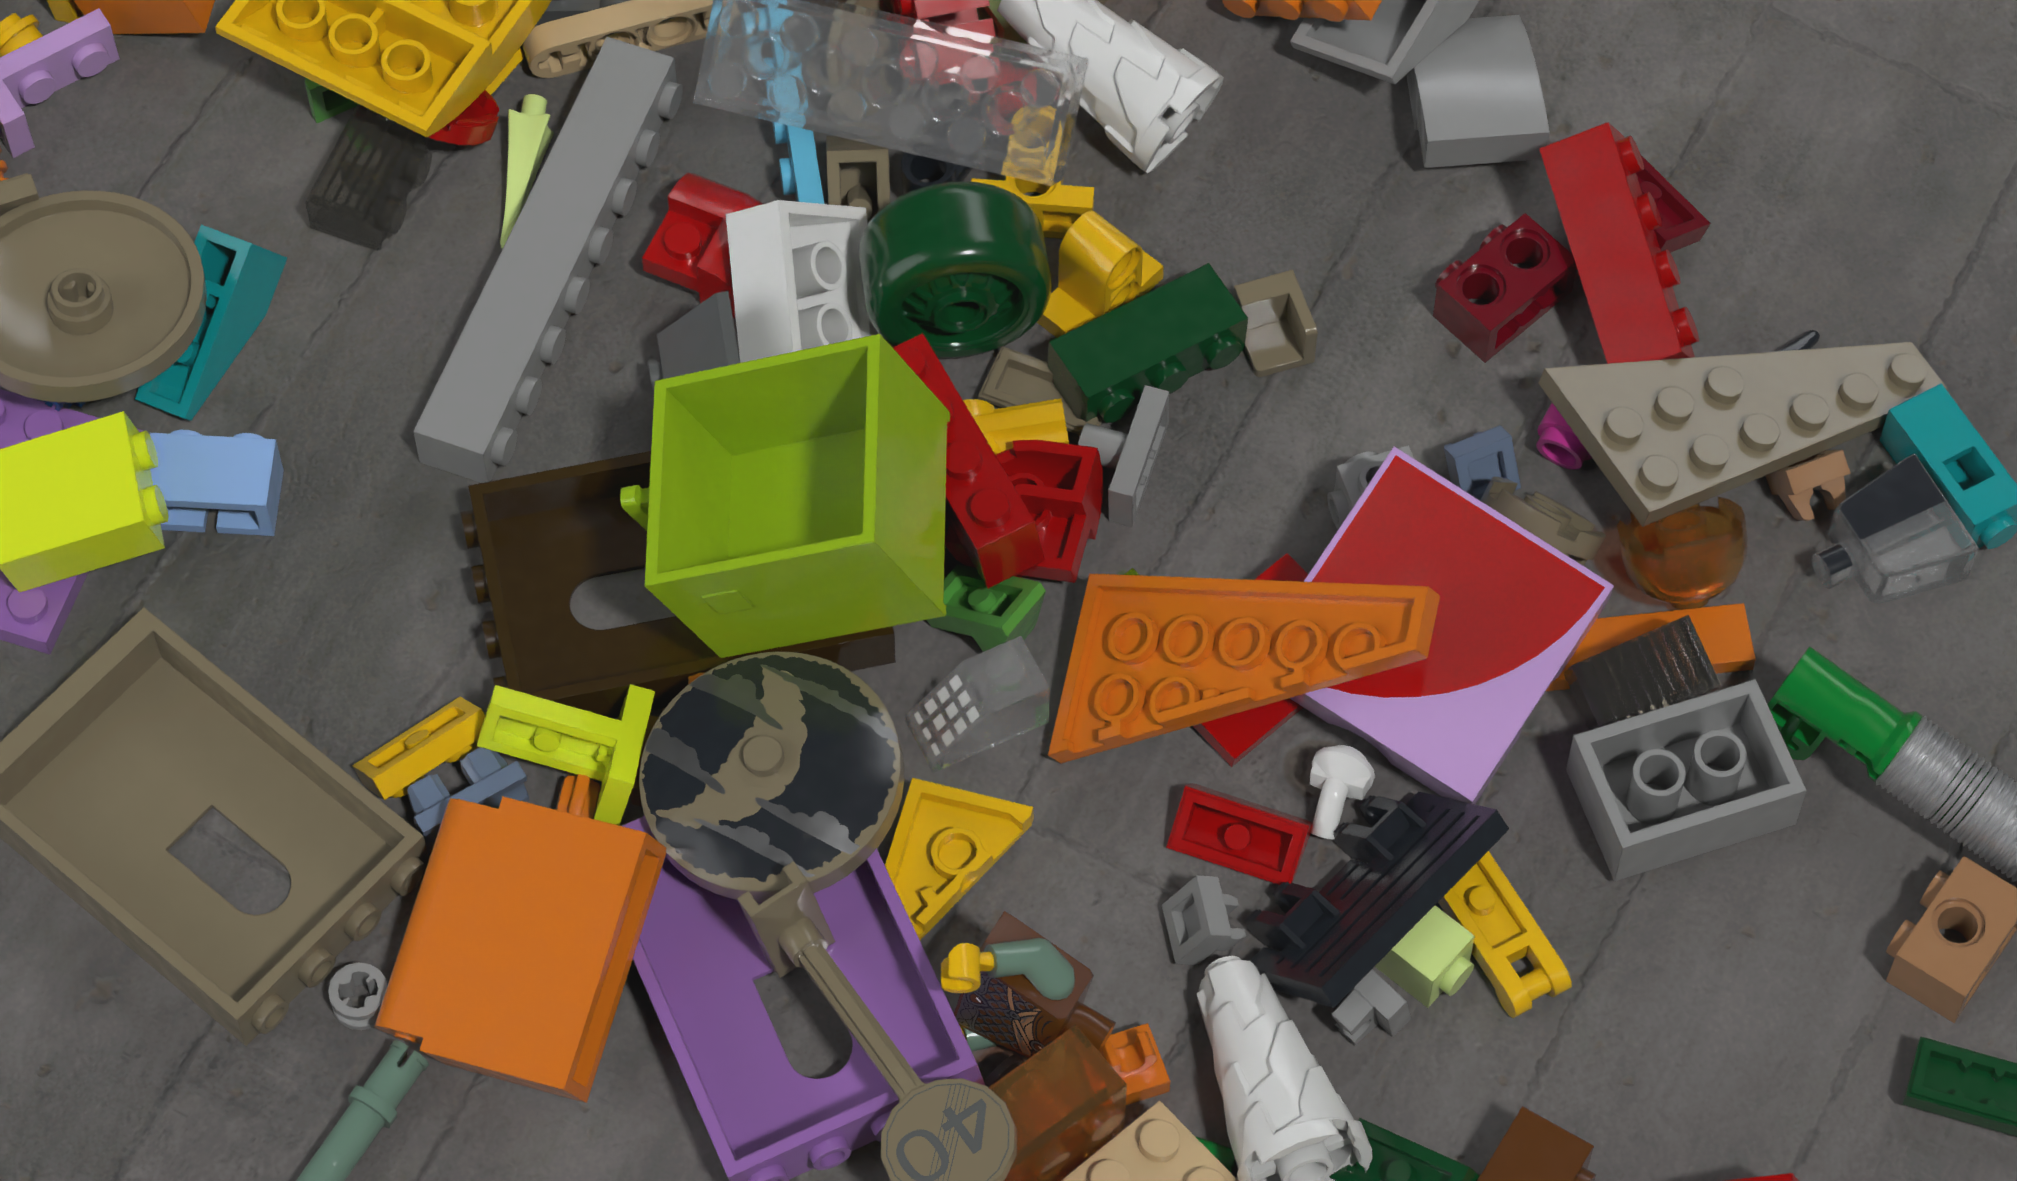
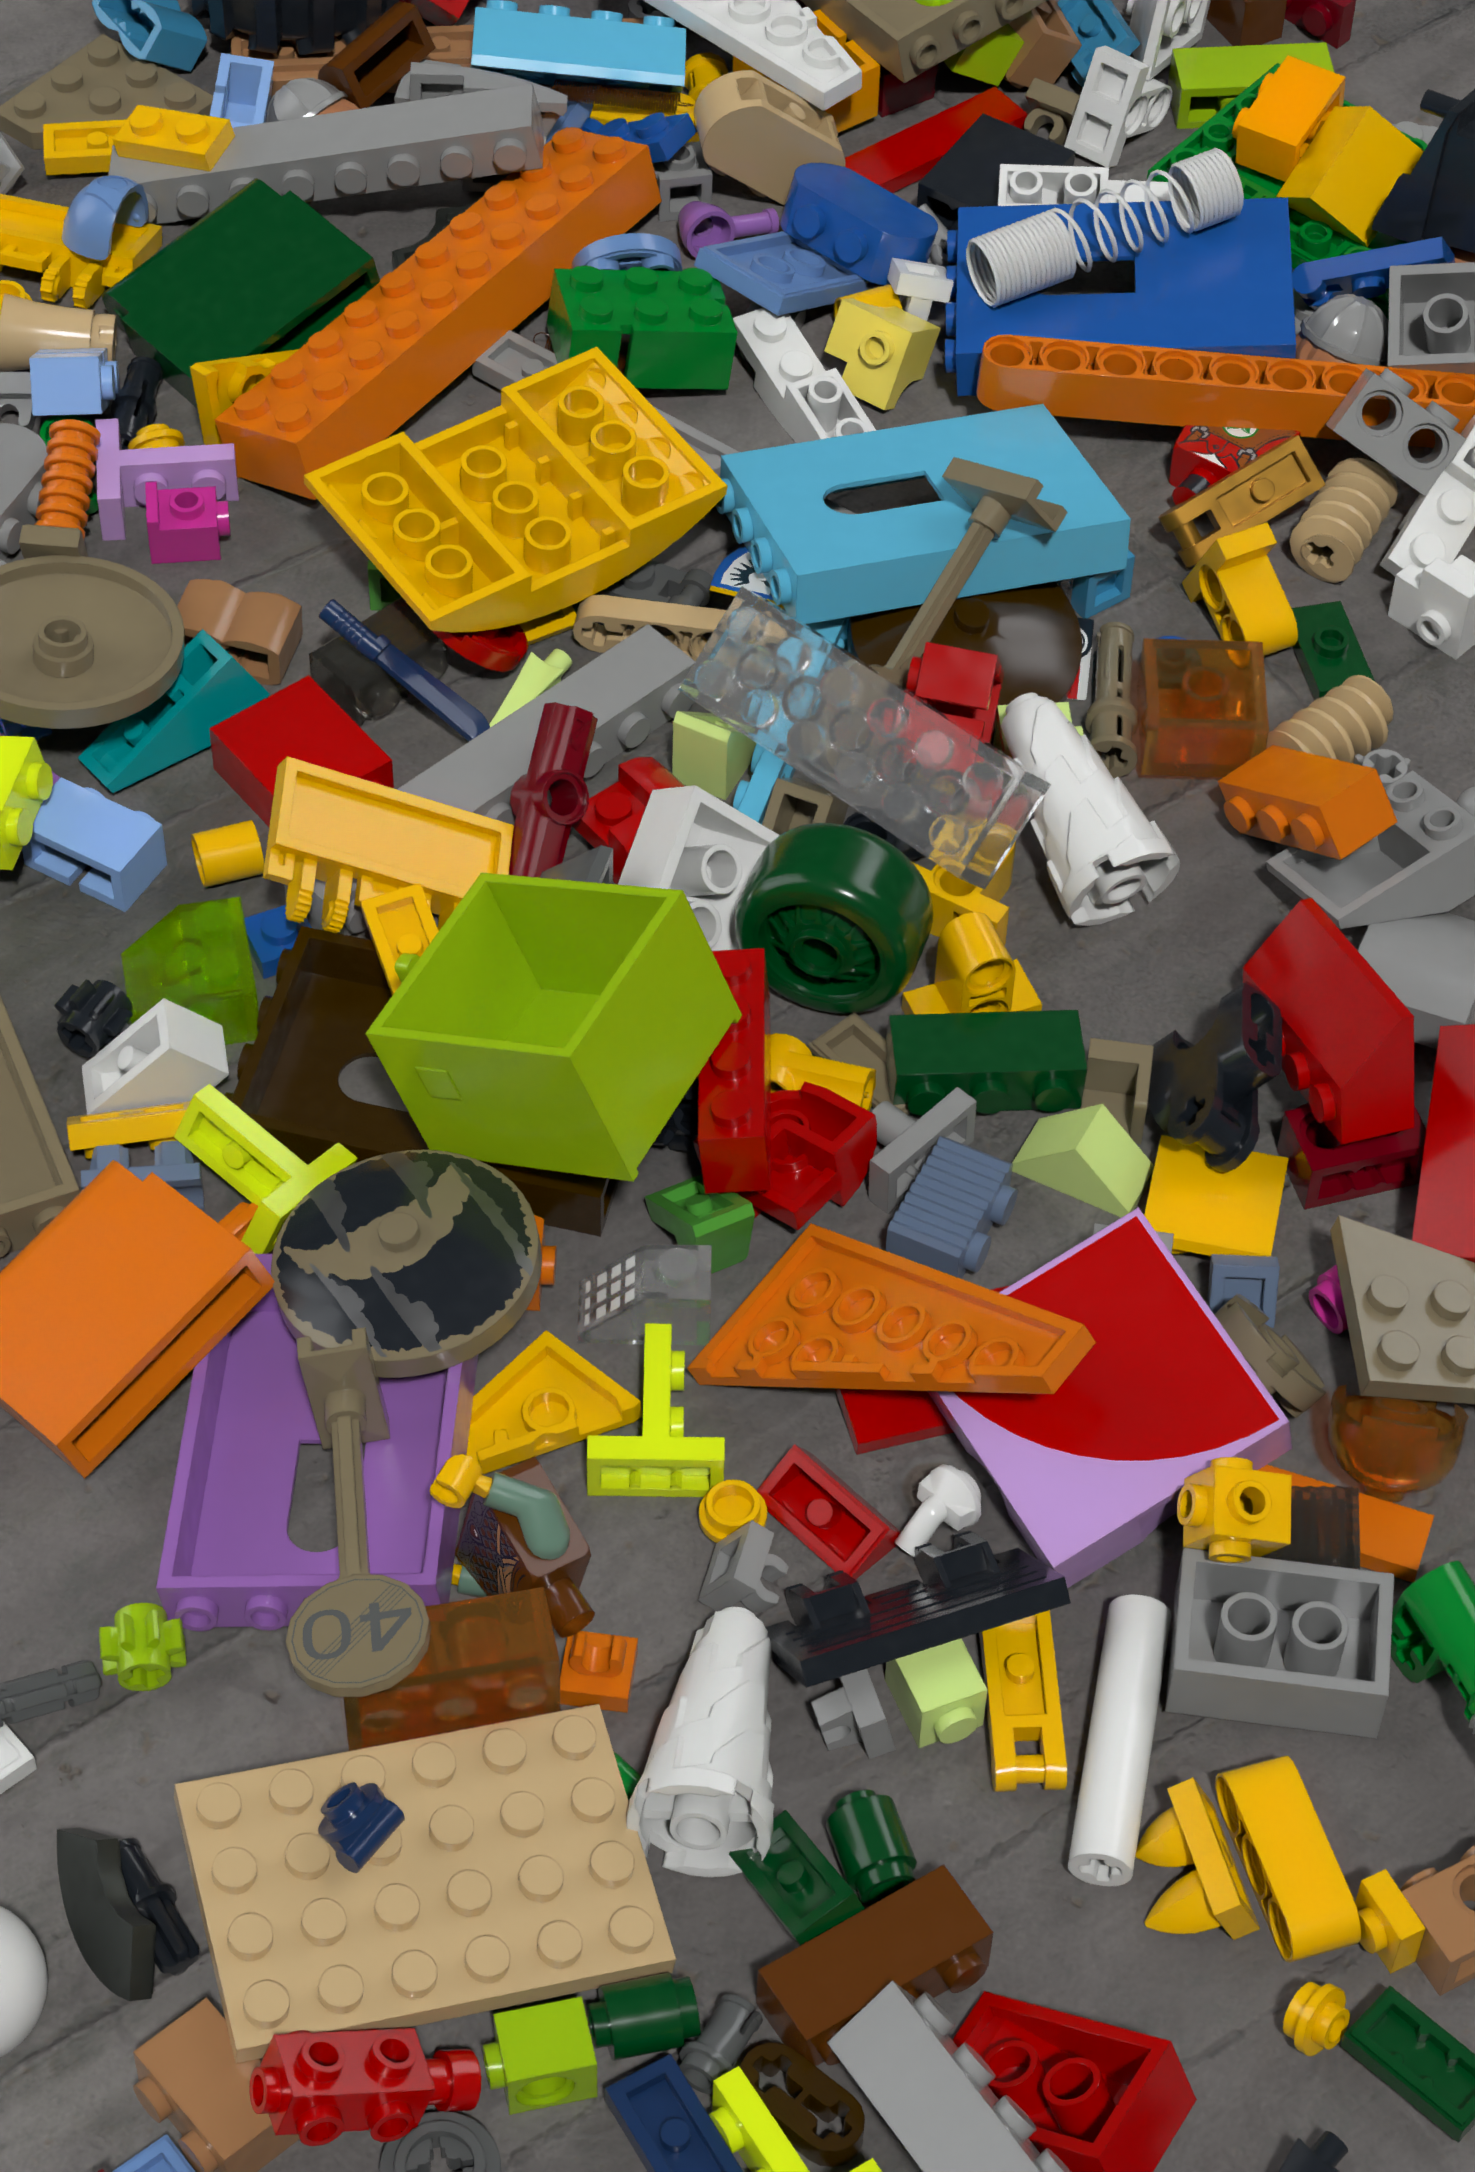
camera: 25 degrees right, 10 degrees down
(92, 109) = (185, 523): none -> dark pink brick
(222, 194) = (252, 627): none -> medium nougat brick
(324, 659) = (92, 1016): none -> black gear
(343, 437) = (228, 853): none -> yellow beam
(360, 317) = (295, 724): none -> red brick
(389, 580) = (198, 962): none -> clear neon green slope
(406, 679) = (156, 1061): none -> white slope
(424, 186) = (423, 685): none -> dark blue piece
(435, 501) = (269, 935): none -> blue plate
(530, 370) = (385, 838): none -> yellow hinge
(586, 465) = (399, 925): none -> yellow plate
(621, 256) = (556, 766): none -> dark red piece
(729, 145) = (709, 752): none -> yellowish green slope
(1072, 849) = (662, 1458): none -> neon yellow bracket
(1160, 870) = (729, 1507): none -> yellow plate
(1196, 507) = (952, 1209): none -> sand blue brick
(1279, 400) = (1086, 1158): none -> yellowish green slope
(1367, 287) = (1212, 1087): none -> black piece
(1413, 390) = (1215, 1209): none -> yellow slope
(1443, 187) = (1341, 1027): none -> red slope
(1445, 1114) = (871, 1845): none -> dark green brick
(1595, 925) = (1120, 1741): none -> white piece
(1607, 685) = (1235, 1510): none -> yellow brick
(1734, 1028) = (1214, 1890): none -> yellow tile
(1783, 965) = (1288, 1859): none -> yellow beam
(1876, 1091) = (1316, 2018): none -> yellow plate
(1889, 982) = (1388, 1922): none -> yellow plate

